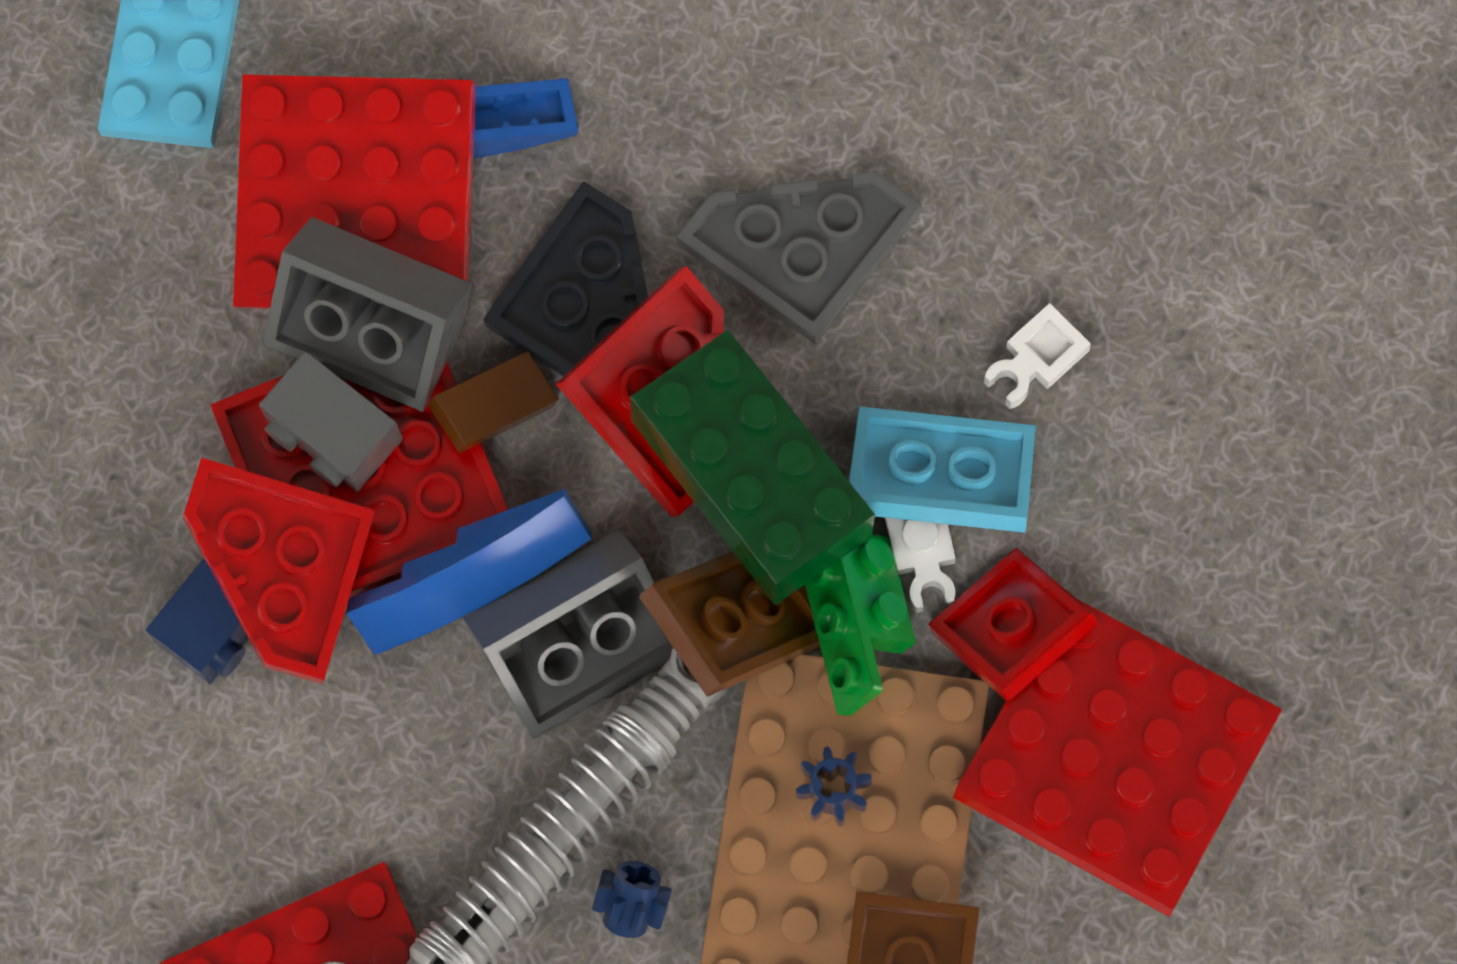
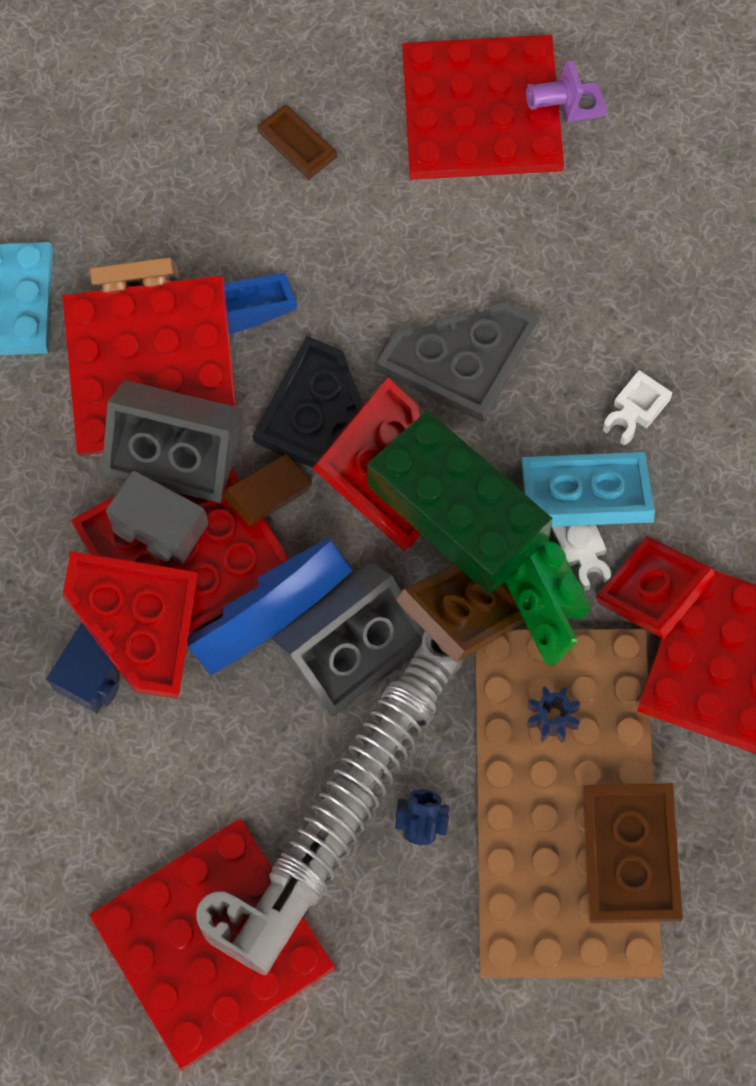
camera: 10 degrees left, 5 degrees down
(329, 58) = (132, 274): none -> medium nougat plate

